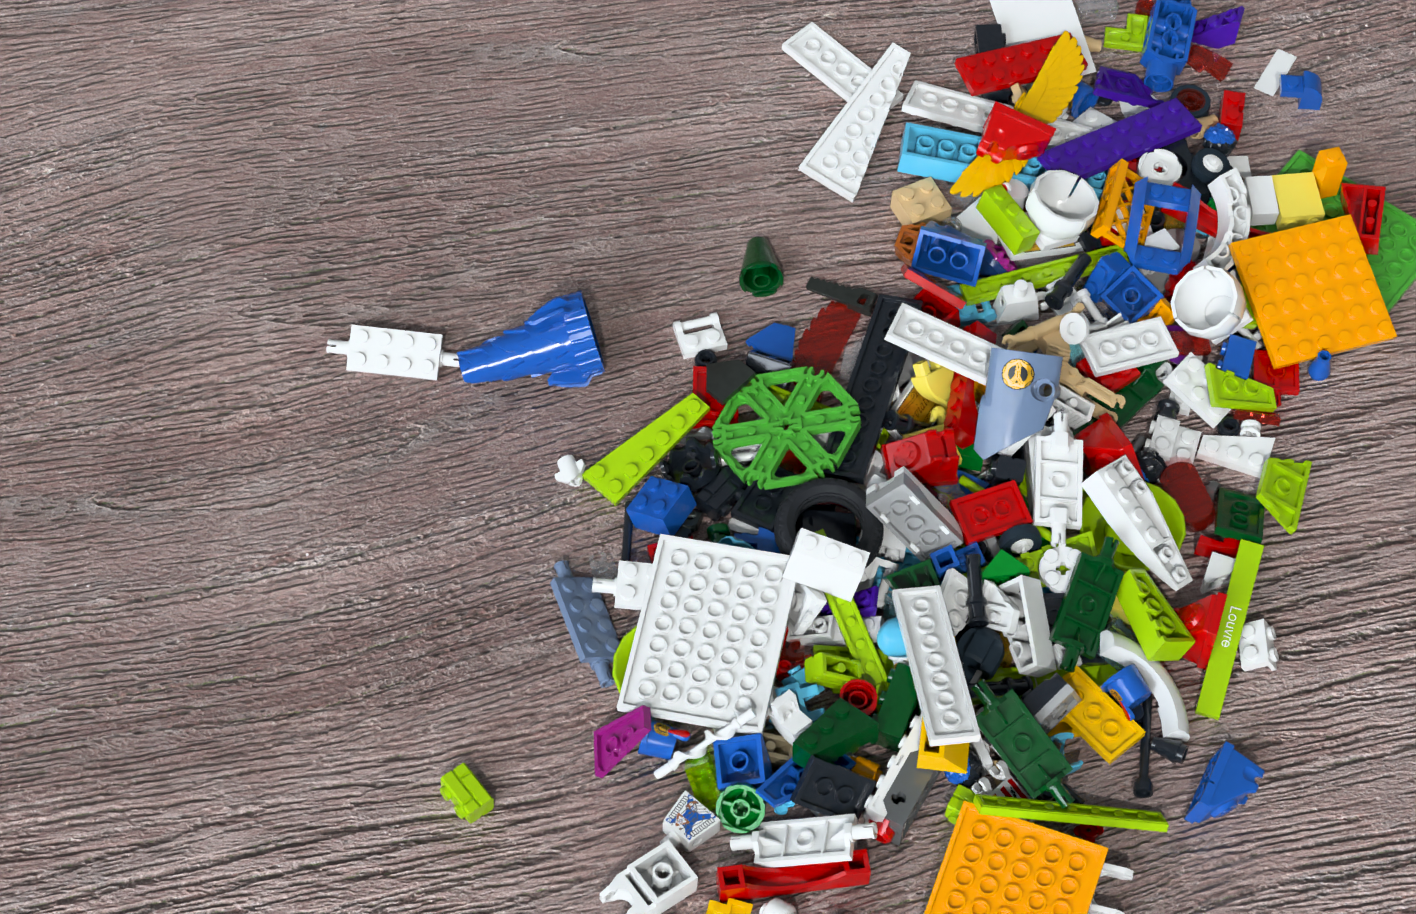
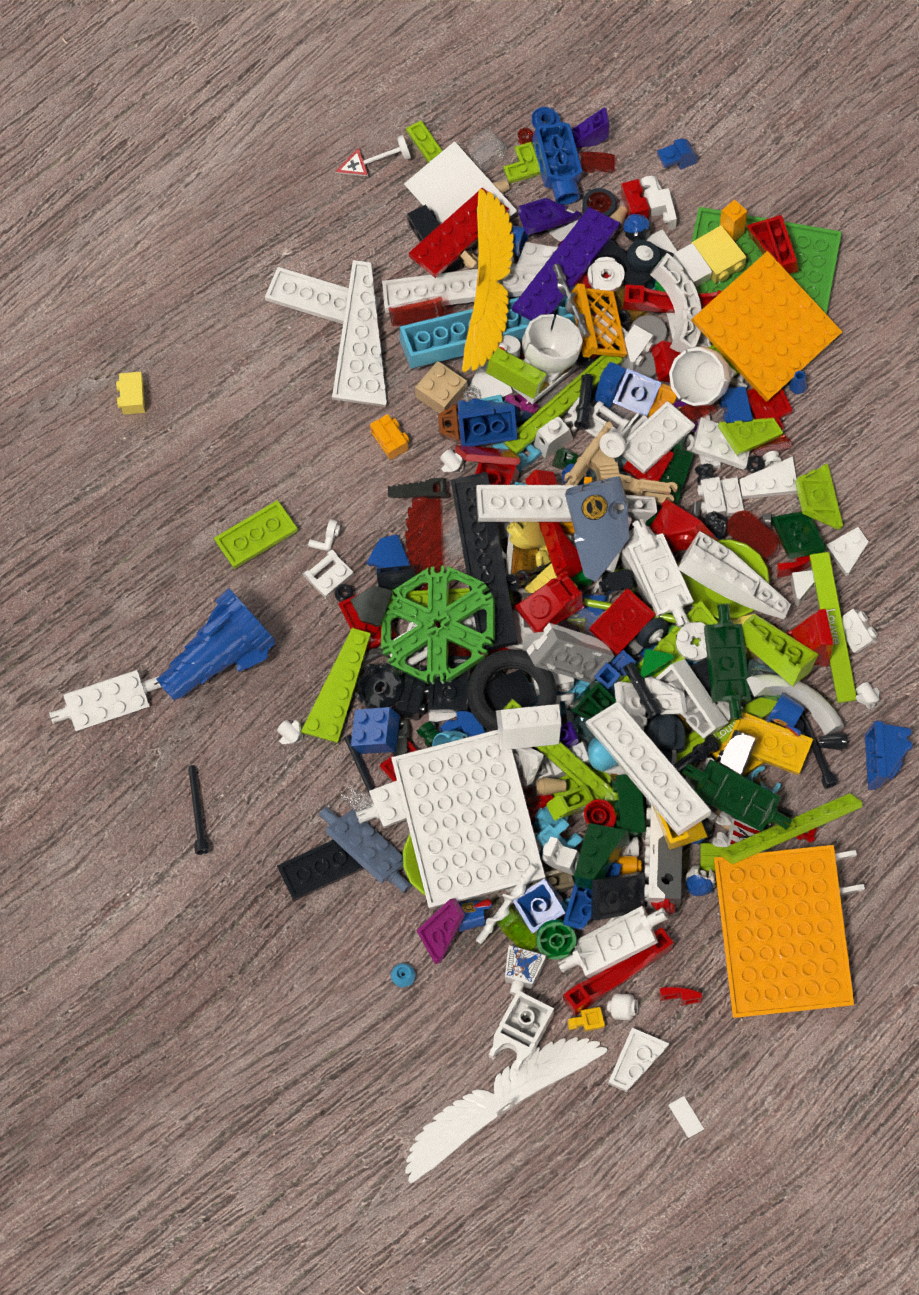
camera: 20 degrees left, 10 degrees up
(412, 540) = (201, 845): none -> black piece
(466, 793) = (350, 1024): lime brick -> none
(521, 621) = (317, 869): none -> black tile
(553, 777) = (403, 981): none -> dark azure plate
(592, 75) = (131, 393): none -> light yellow brick
(644, 263) = (255, 534): none -> lime plate
(727, 294) = (332, 530): none -> white plate
(760, 269) = (347, 498): dark green cone -> none
(818, 644) = (550, 786): none -> tan cone
(839, 230) = (389, 436): none -> light orange brick
(876, 752) = (631, 848): none -> white wheel
(894, 284) = (452, 462): none -> white piece
(934, 116) = (417, 310): none -> clear red brick
(935, 825) = (698, 883): none -> blue piece
(1013, 135) = (488, 304): red piece -> none
(1102, 174) = (570, 305): none -> flat silver piece
(1165, 197) = (626, 301): blue wedge -> none
(1233, 718) = (867, 695): none -> white piece
(1257, 125) = (659, 200): none -> white plate
(1278, 66) = (648, 146): white sticker -> none
(1290, 559) = (847, 549): none -> white wing

